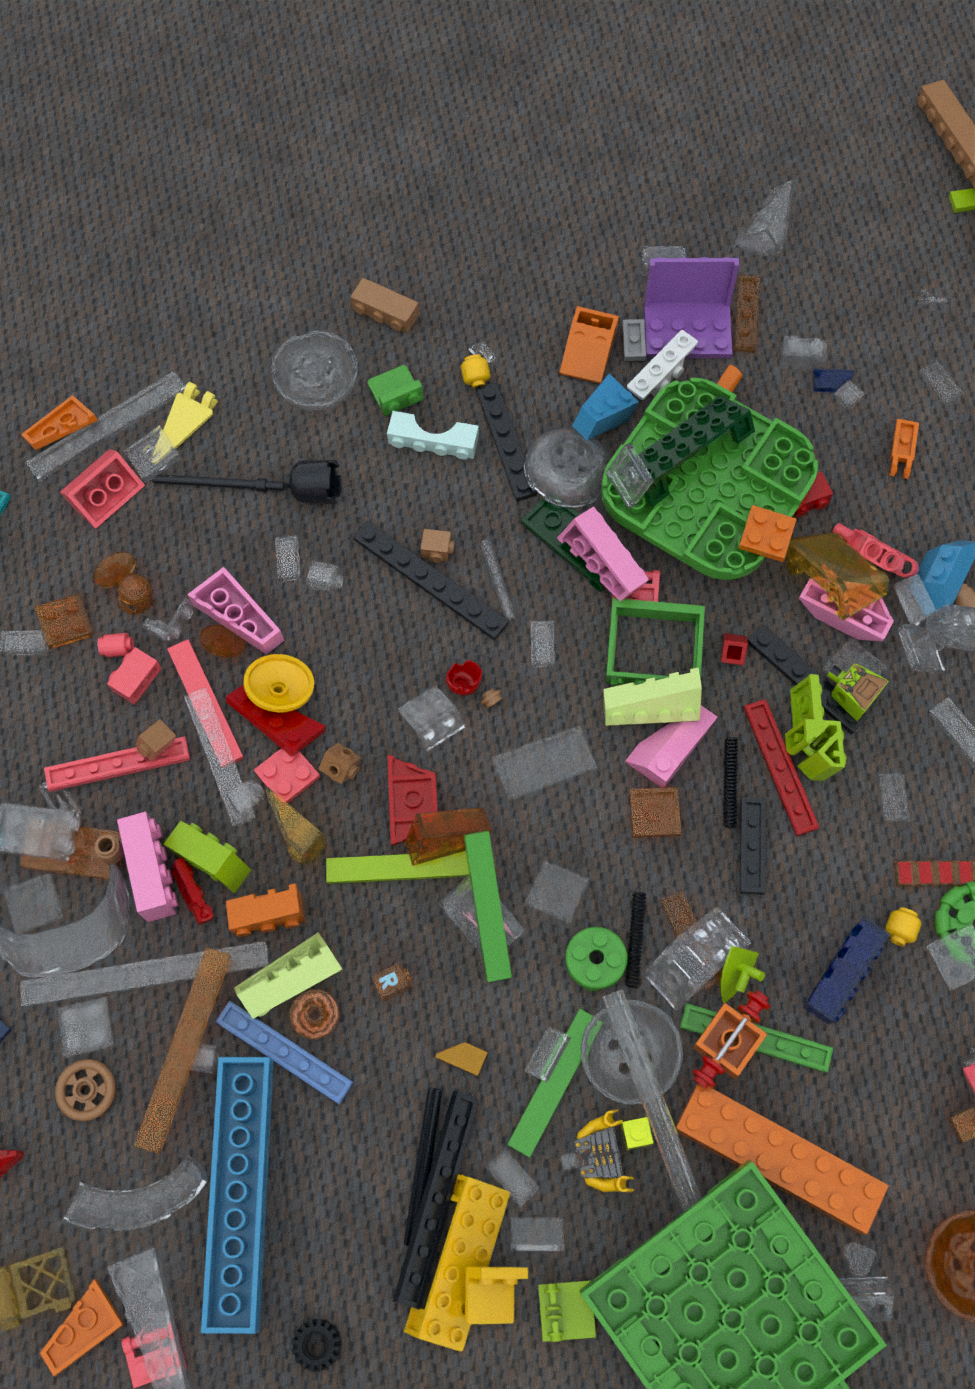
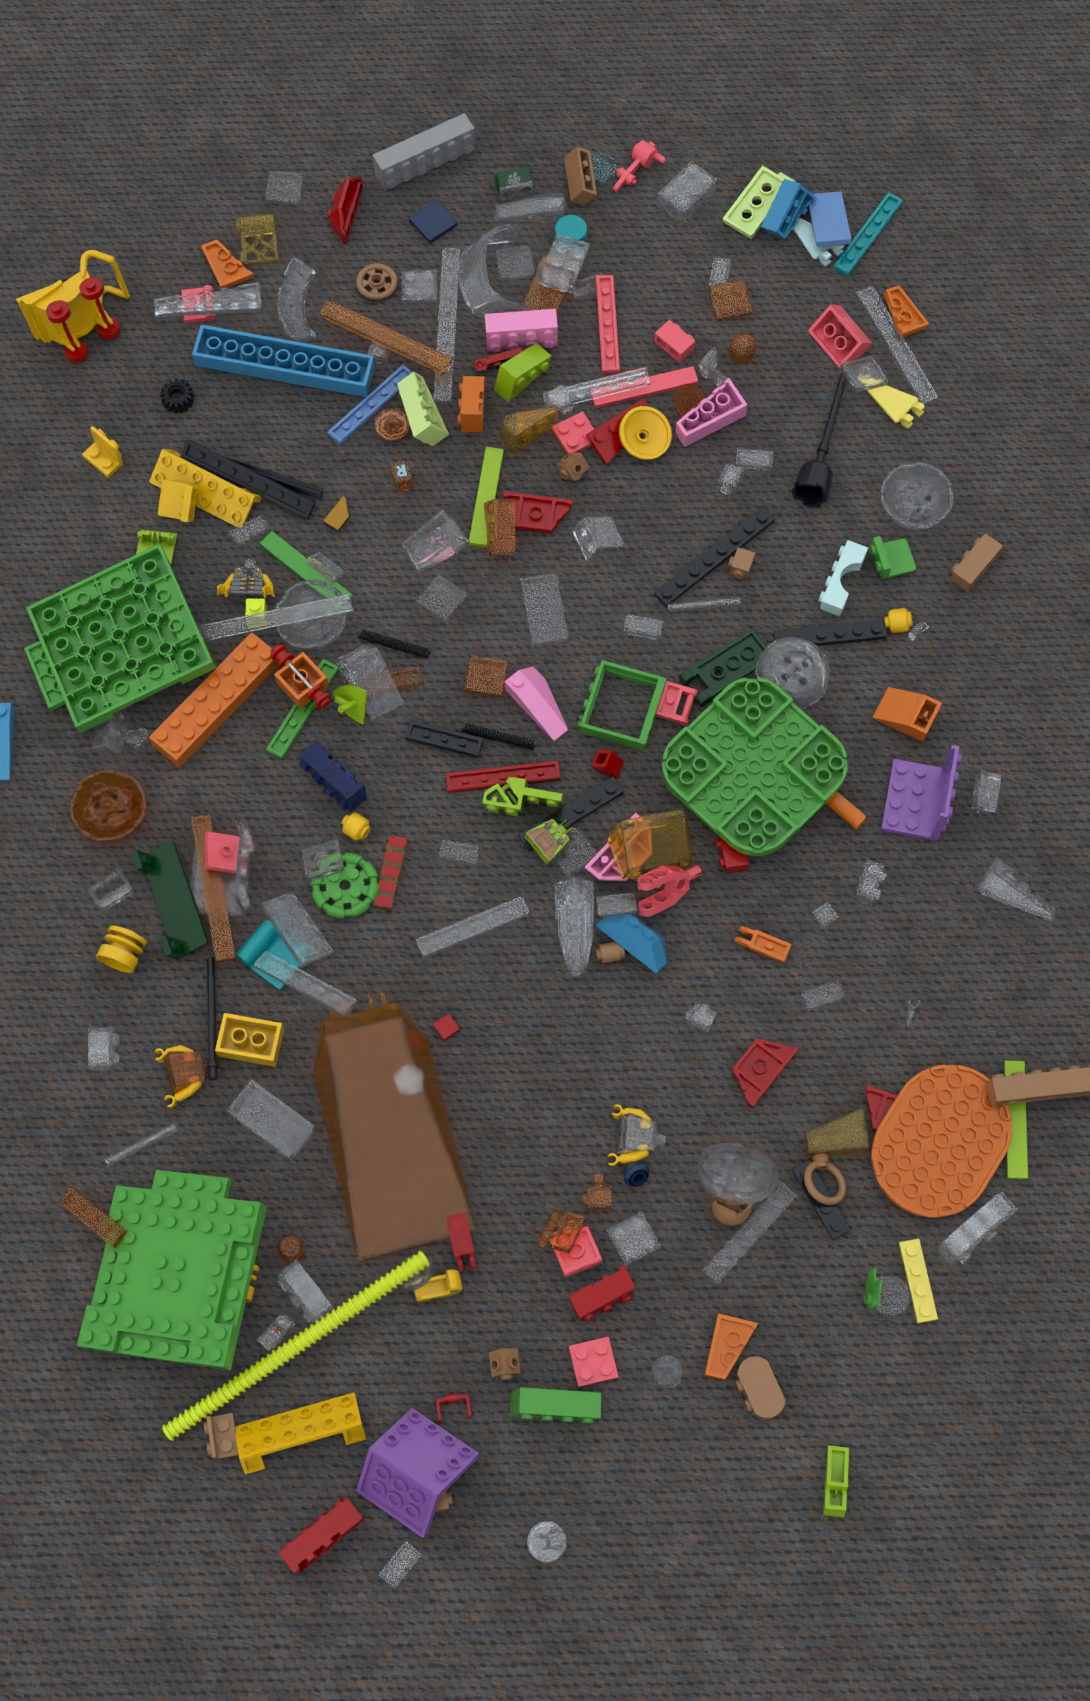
camera: 100 degrees right, 0 degrees up
(109, 849) = (538, 302): medium nougat brick -> none
(114, 569) = (766, 336): clear orange dish -> none
(115, 644) = (703, 332): coral brick -> none
(155, 740) = (615, 344): medium nougat brick -> none
(464, 678) = (623, 562): red hair -> none
(487, 906) = (438, 539): bright green tile -> none
(491, 697) = (604, 580): medium nougat plate -> none
(536, 1234) = (209, 532): clear panel -> none
(596, 976) = (385, 622): bright green plate -> none
(603, 553) = (700, 673): bright pink wedge -> none
(605, 409) = (839, 705): dark azure wedge -> none
(629, 475) = (754, 688): clear tile -> none
(634, 340) = (909, 751): light grey plate -> none
(655, 700) = (572, 690): yellowish green wedge -> none
(663, 367) = (872, 763): white bracket -> none
(692, 437) = (781, 741): dark green bracket -> none
(746, 313) = (923, 852): clear orange tile -> none
(767, 533) = (690, 791): orange plate -> none
(830, 379) = (842, 903): clear blue tile -> none

